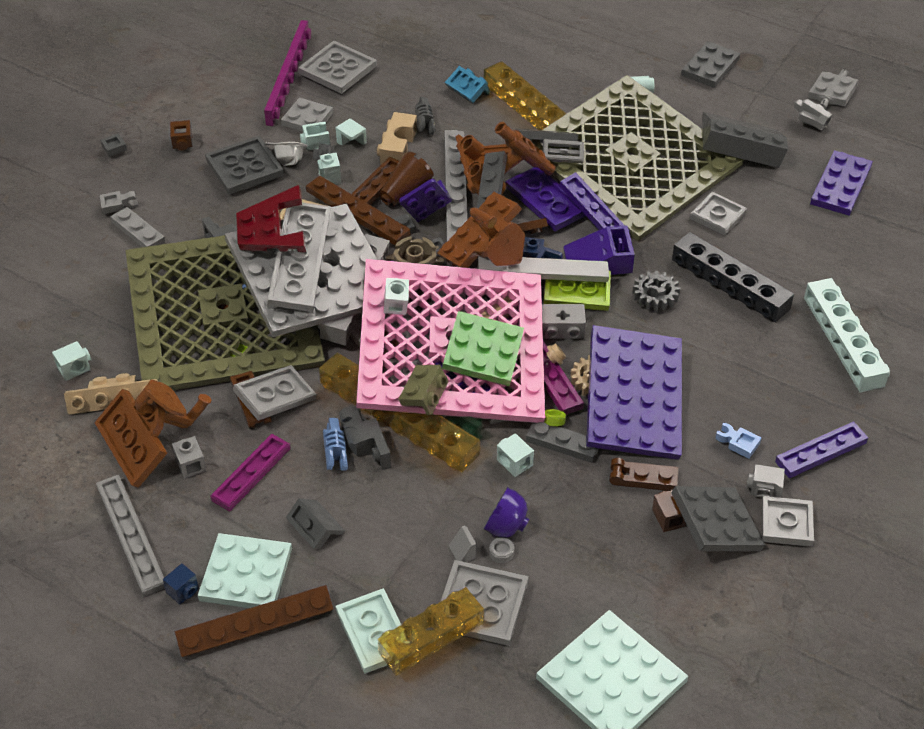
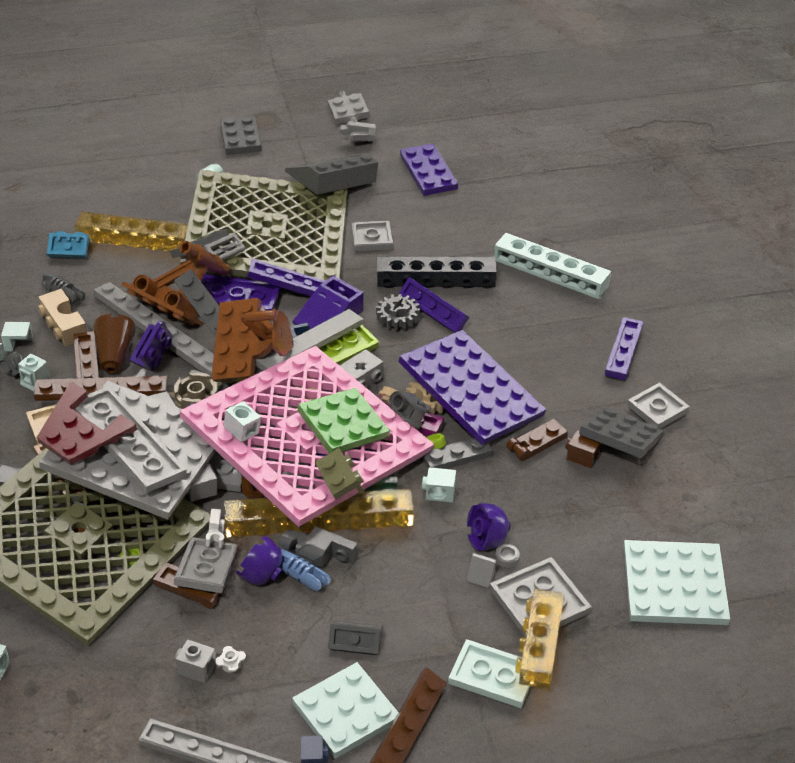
camera: 45 degrees left, 5 degrees down
(101, 393) = (61, 662): tan bracket -> none
(134, 427) = (133, 668): dark orange plate -> none
(218, 477) = (227, 664): none -> white plate
(250, 472) = (256, 638): magenta tile -> none
(309, 370) = (216, 528): none -> white plate
(309, 418) = (262, 563): none -> dark purple cylinder
(555, 374) = (409, 407): none -> dark grey piece
(693, 304) = (434, 305): none -> dark purple plate
(739, 441) = (570, 374): light blue plate -> none
(766, 481) = (619, 389): light grey window -> none

